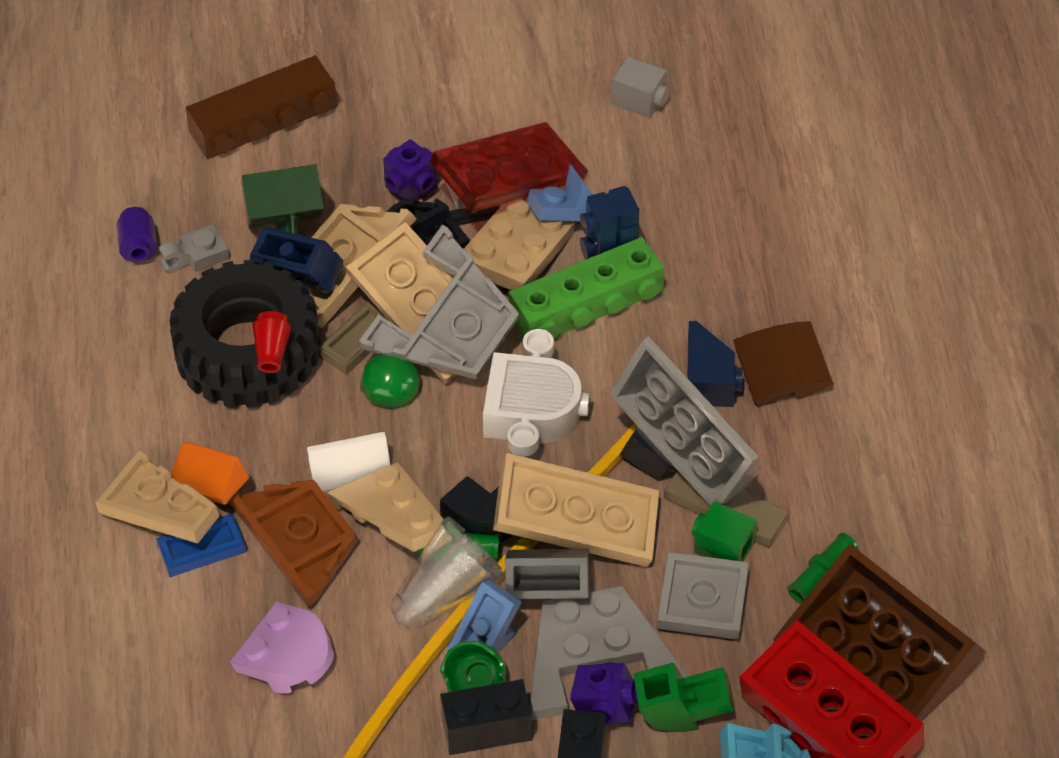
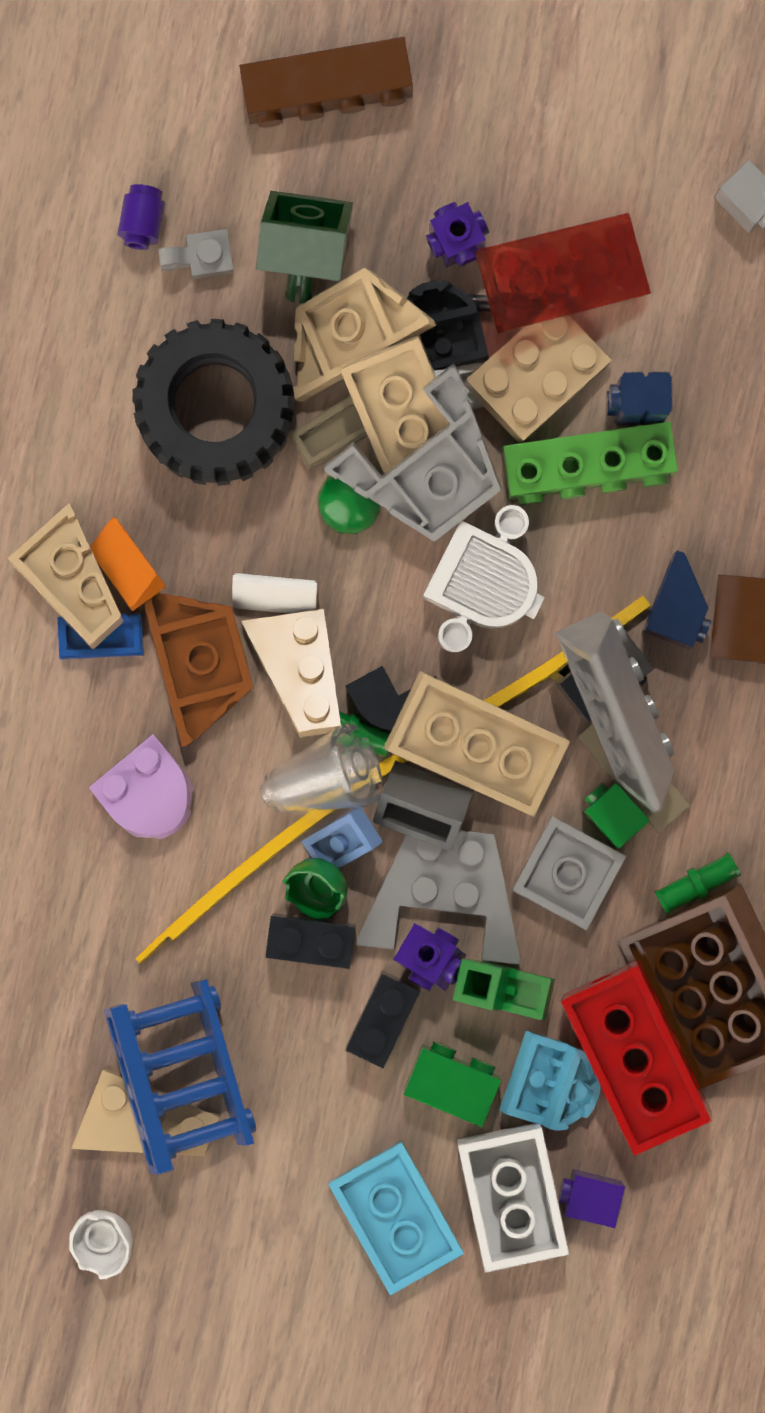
camera: 20 degrees right, 35 degrees up
(270, 337) = (227, 455): red cone -> none
(303, 256) = (293, 332): dark blue brick -> none
(560, 204) = (610, 341): medium blue slope -> none

